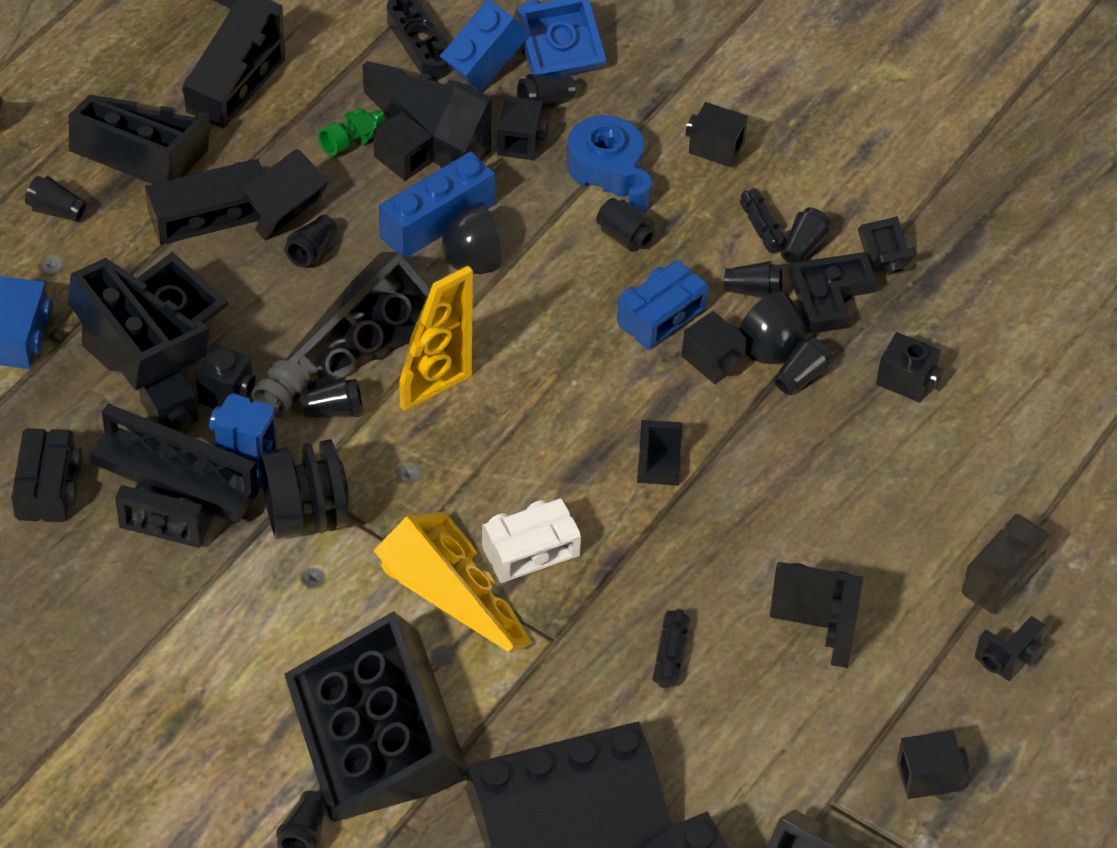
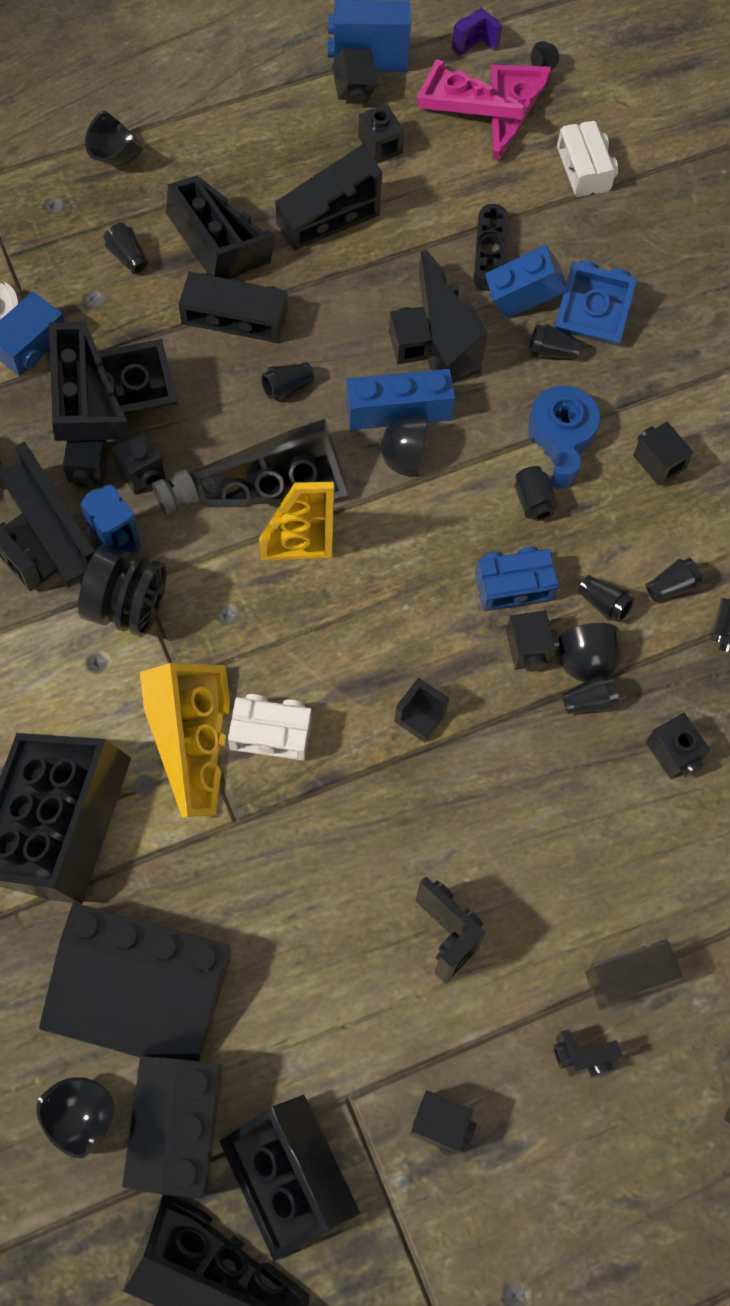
camera: 30 degrees right, 15 degrees up
(284, 192) = (289, 328): black panel -> none
(334, 399) = (209, 523): black cone -> none
(358, 126) = (390, 300): green piece -> none
(520, 128) = (511, 366): black brick -> none
(671, 648) = (314, 885): black axle -> none
(763, 220) = (651, 547): black axle -> none
(822, 284) = (663, 629): black plate -> none

